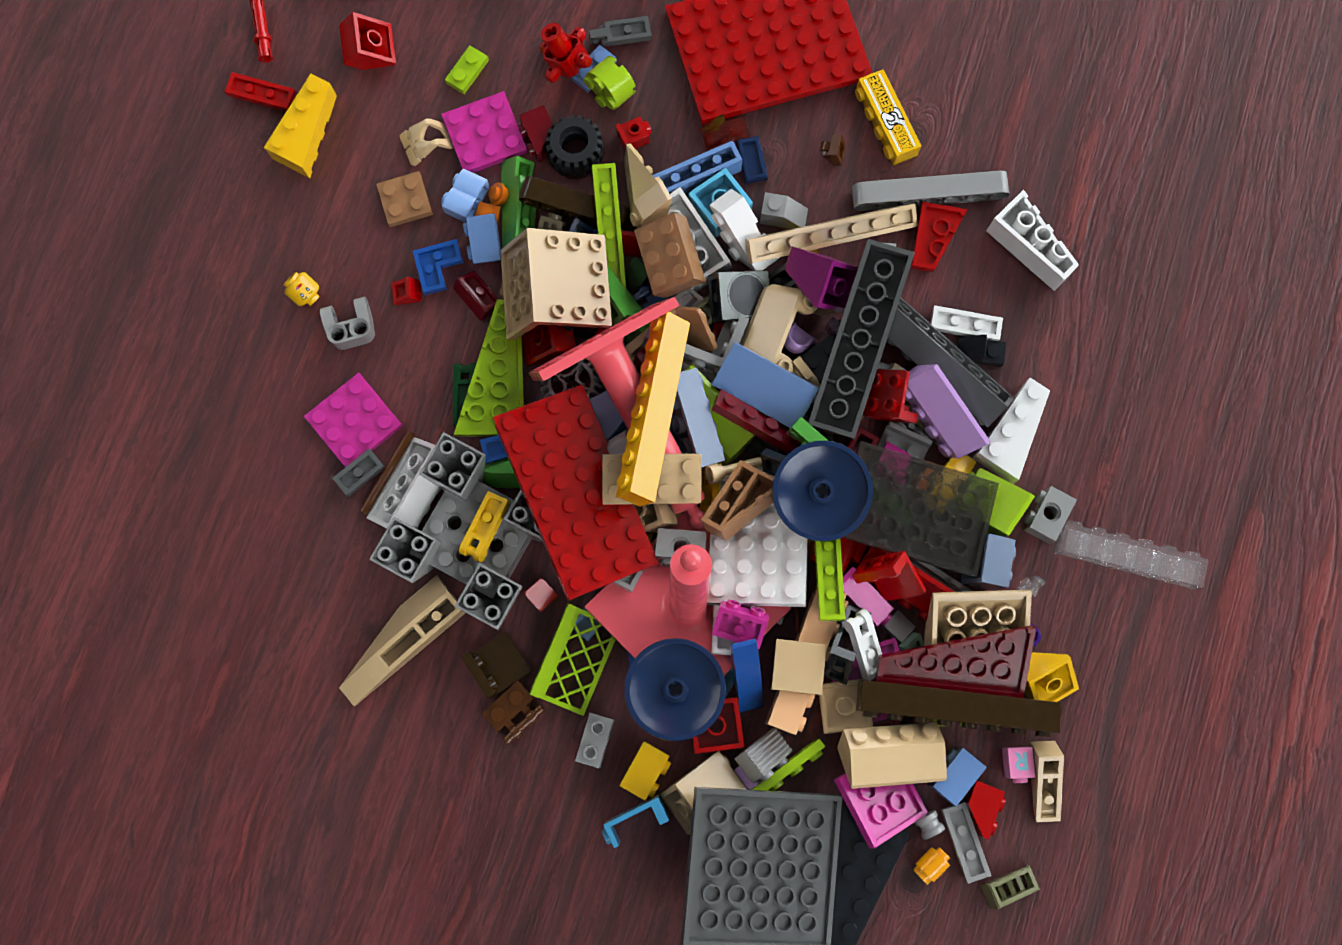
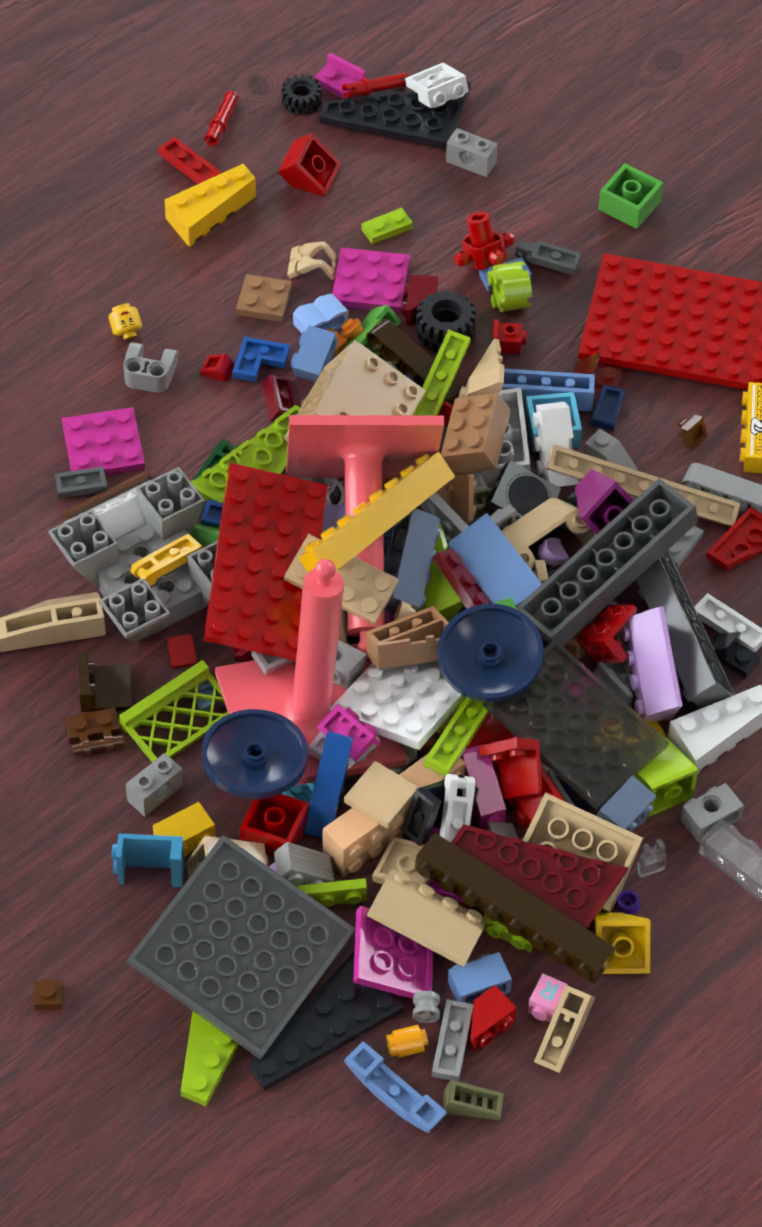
camera: 25 degrees right, 25 degrees down
(948, 914) = (392, 1090): none -> medium blue slope

